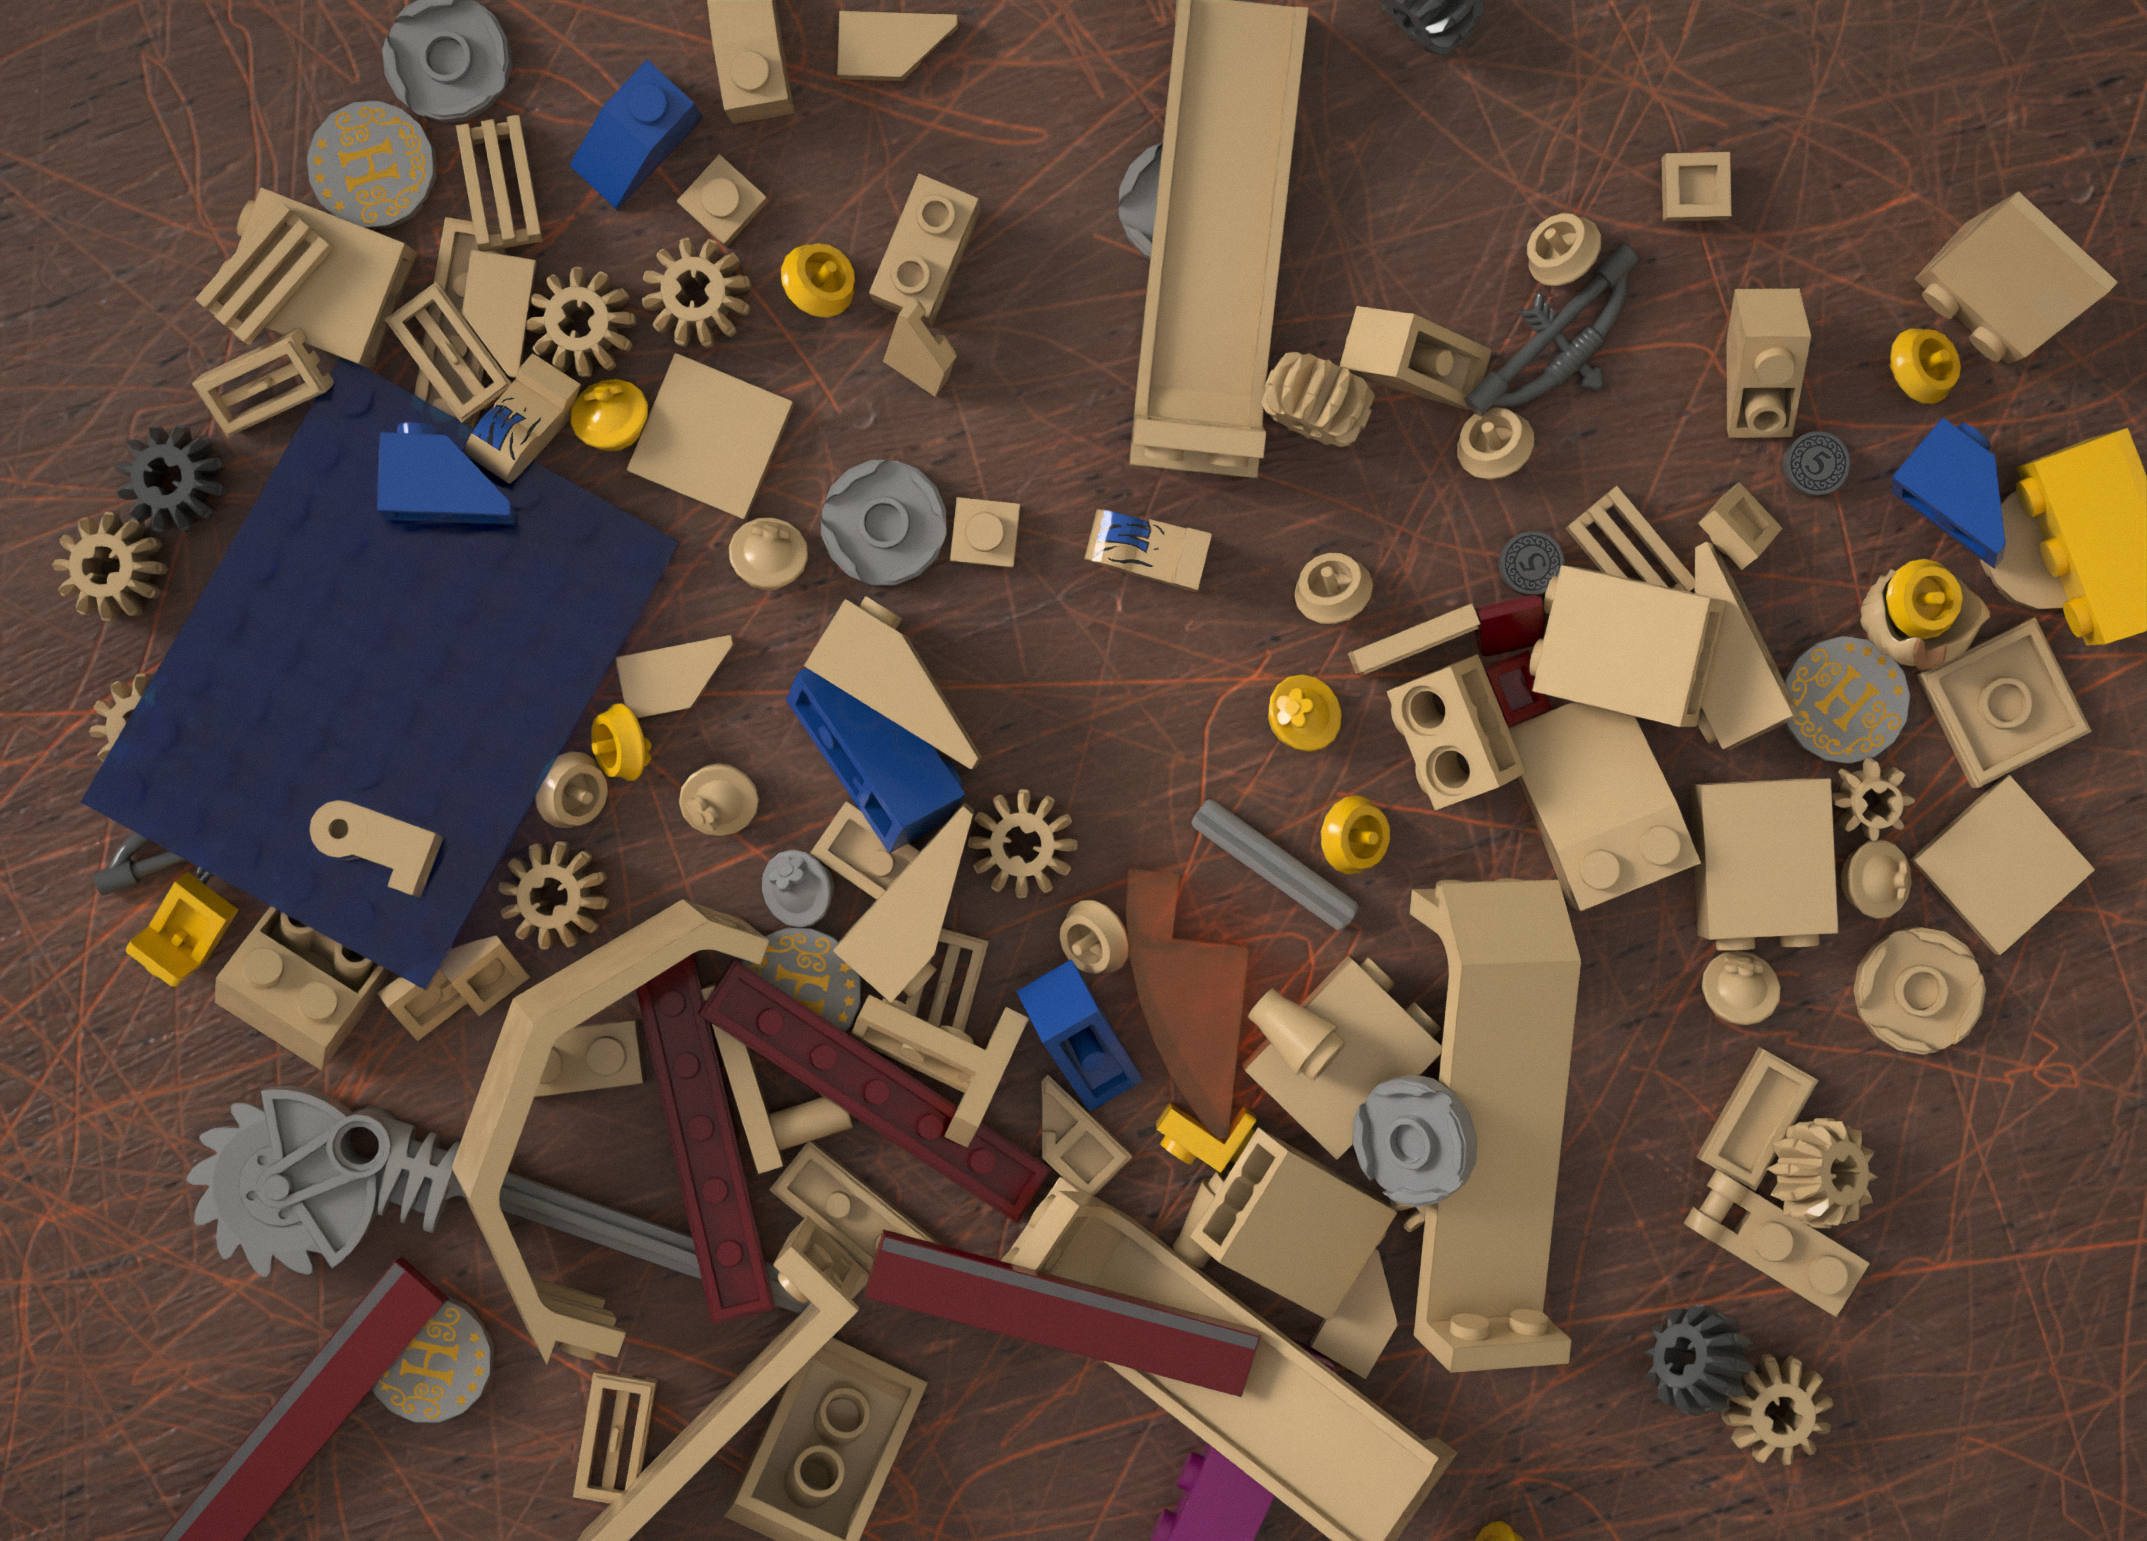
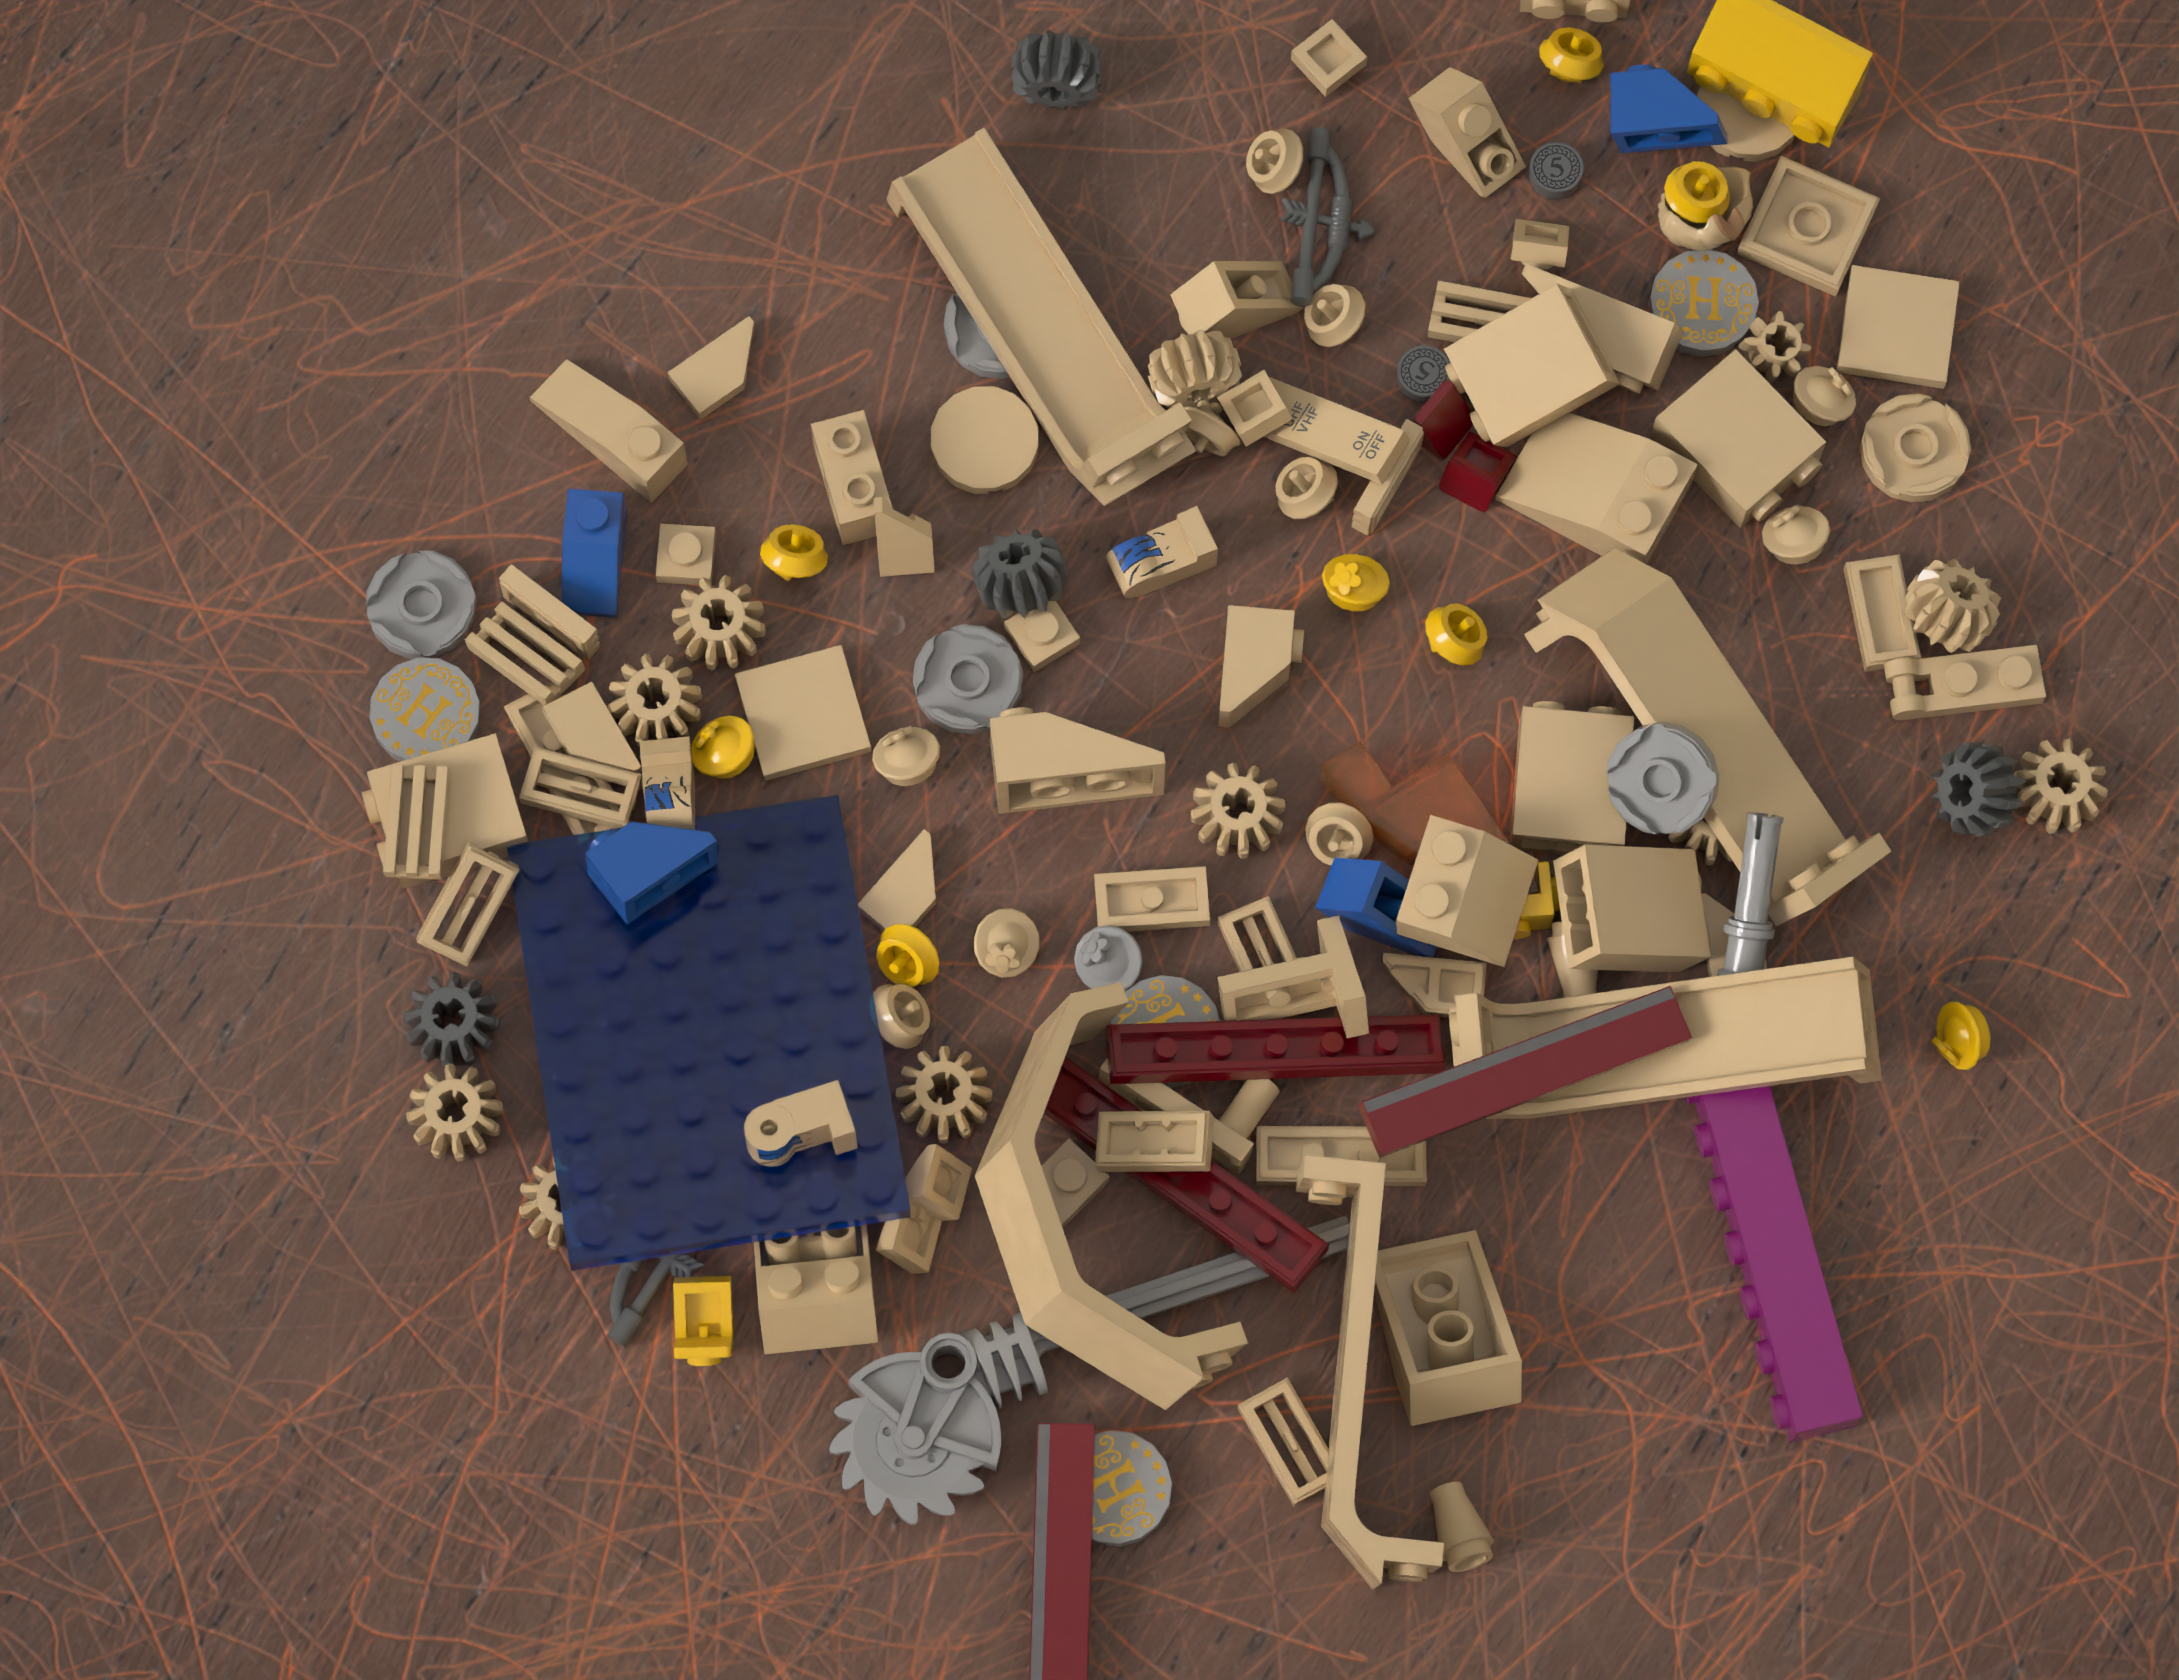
camera: 40 degrees left, 15 degrees down
(550, 160) = (549, 612): none -> tan tile
(694, 1097) = (1154, 1141): none -> tan plate
(884, 767) = (1091, 829): blue slope -> none
(904, 924) = (1203, 910): tan slope -> none
(1002, 466) = (1020, 573): none -> dark grey gear
(1079, 306) = (984, 440): none -> tan tile
(1152, 1098) = (1466, 891): none -> tan slope
(1154, 714) = (1256, 658): none -> tan slope
(1274, 864) = (1419, 697): light grey axle -> none
(1287, 461) = (1209, 430): none -> tan hat
(1298, 1035) = (1528, 776): tan cone -> none
(1343, 480) = (1255, 408): none -> tan plate
(1384, 1327) = (1750, 926): none -> light grey pin
(1392, 553) = (1338, 434): none -> tan tile
(1470, 727) = (1470, 498): tan brick -> none

